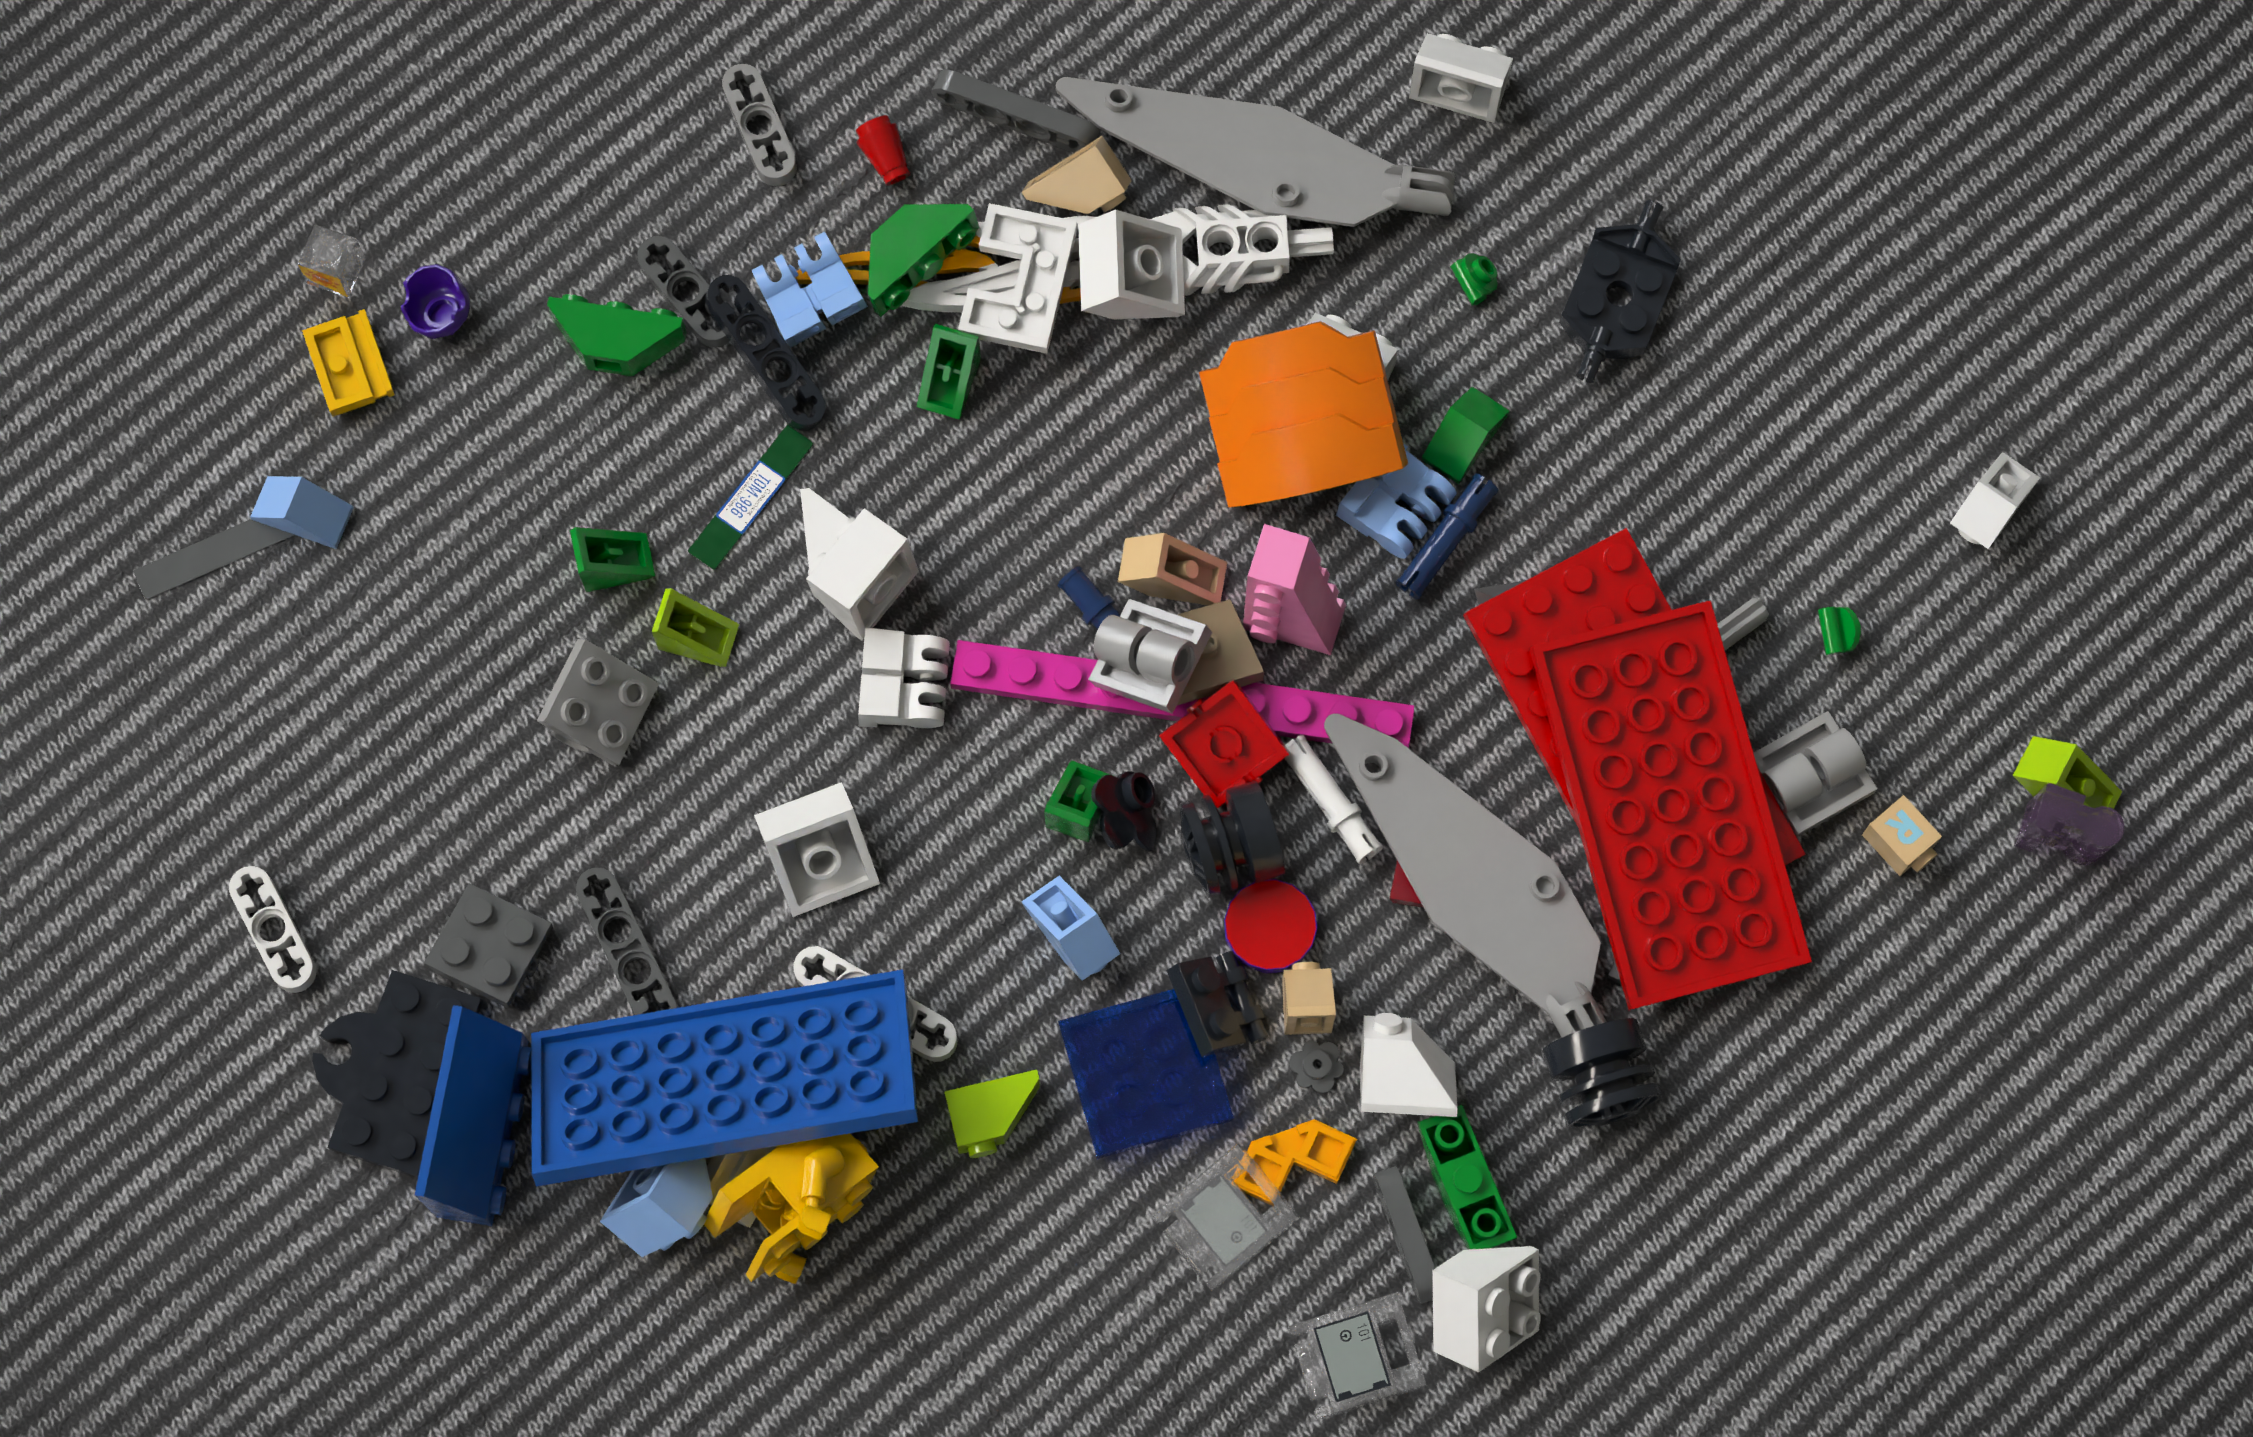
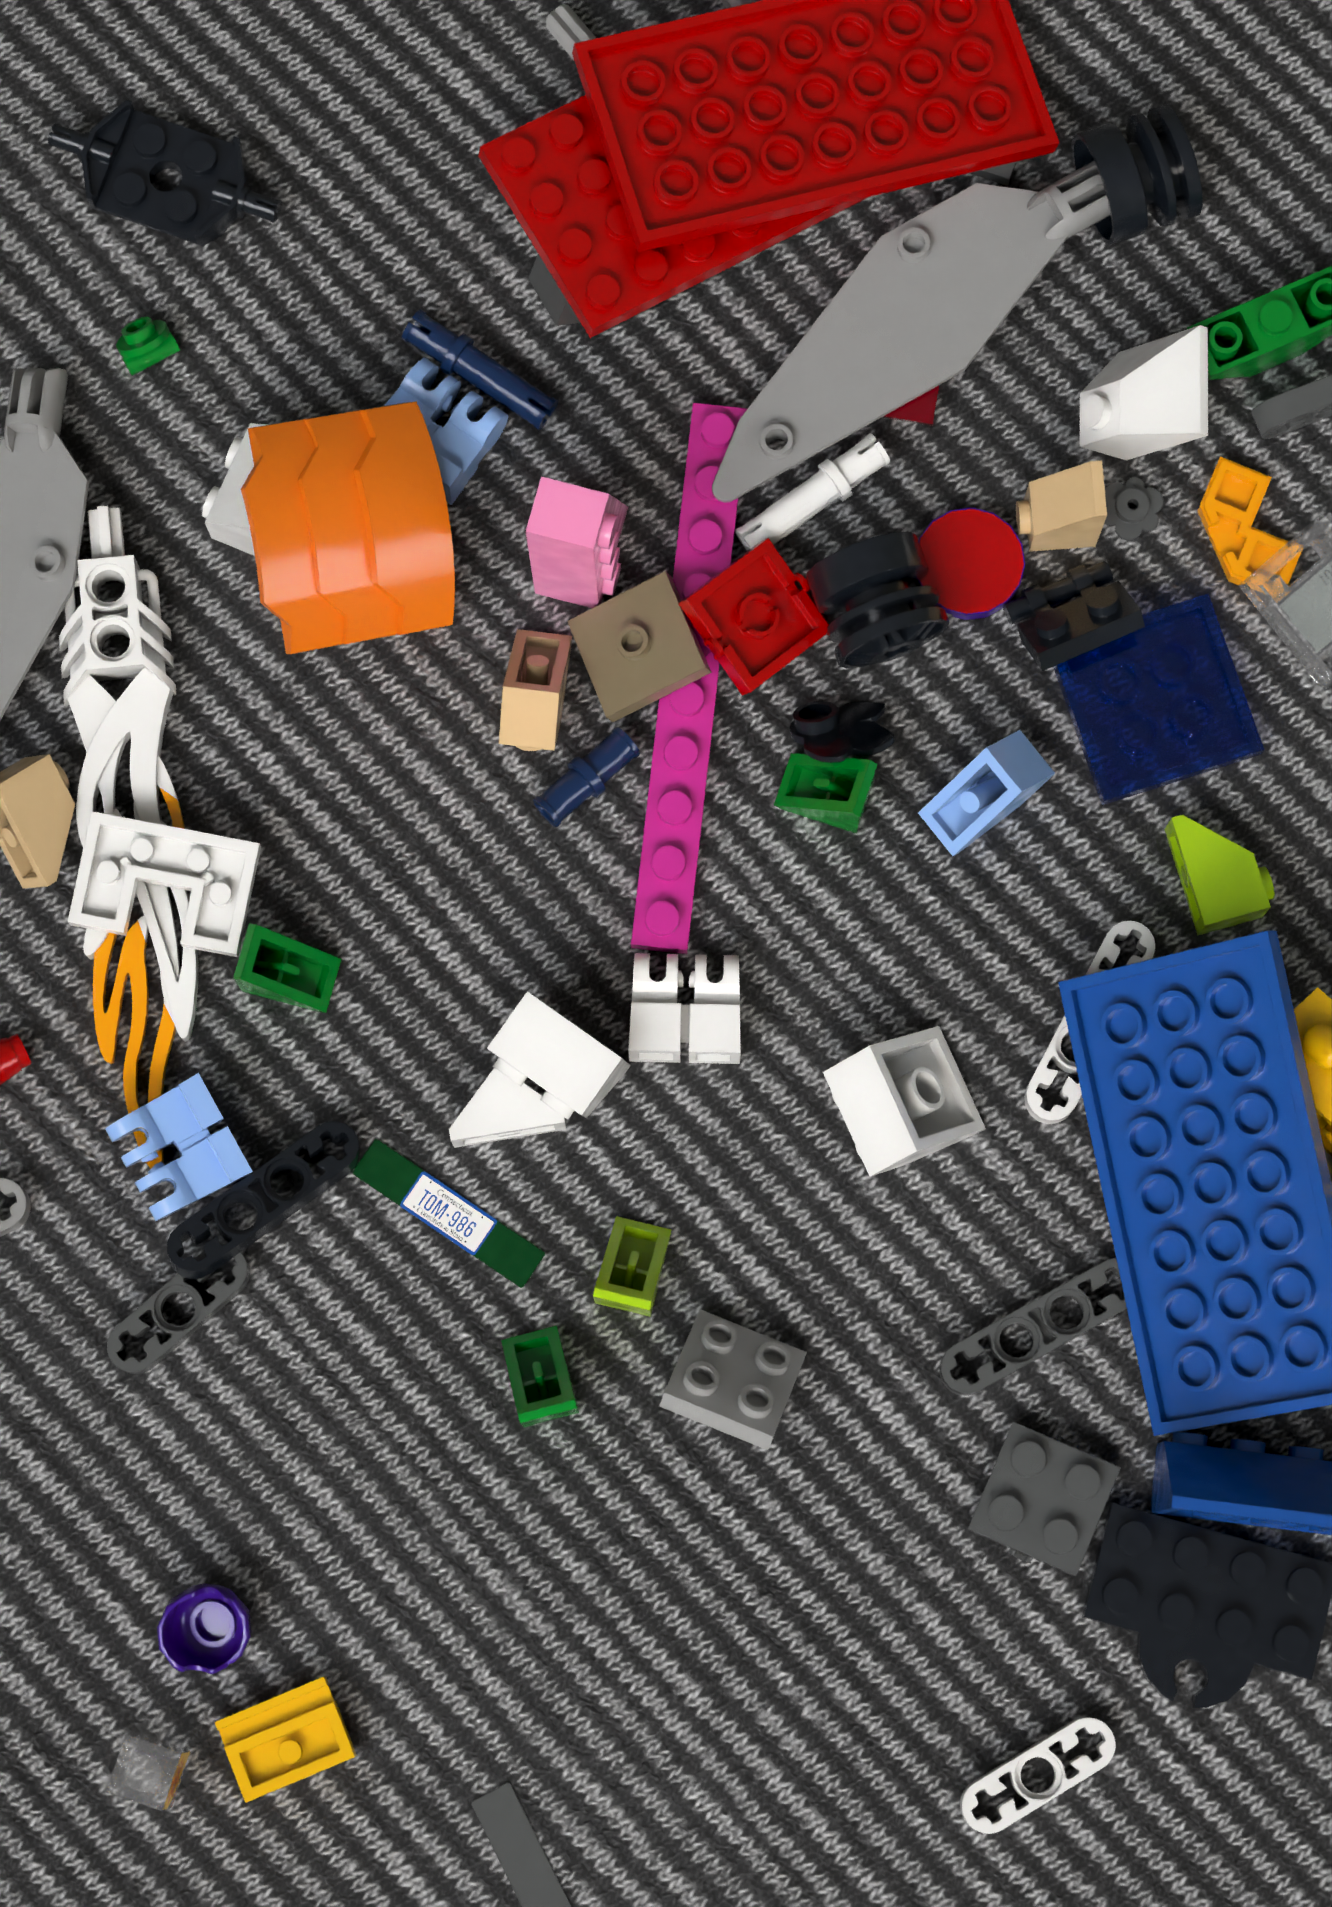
camera: 90 degrees left, 5 degrees up
(302, 509) = (485, 1786): light blue slope -> none
(614, 335) = (243, 1395): green slope -> none
(913, 249) = (128, 1016): green slope -> none
(1131, 267) = (151, 745): white slope -> none
(1147, 654) = (655, 701): light grey plate -> none
(1464, 434) = (348, 352): green slope -> none

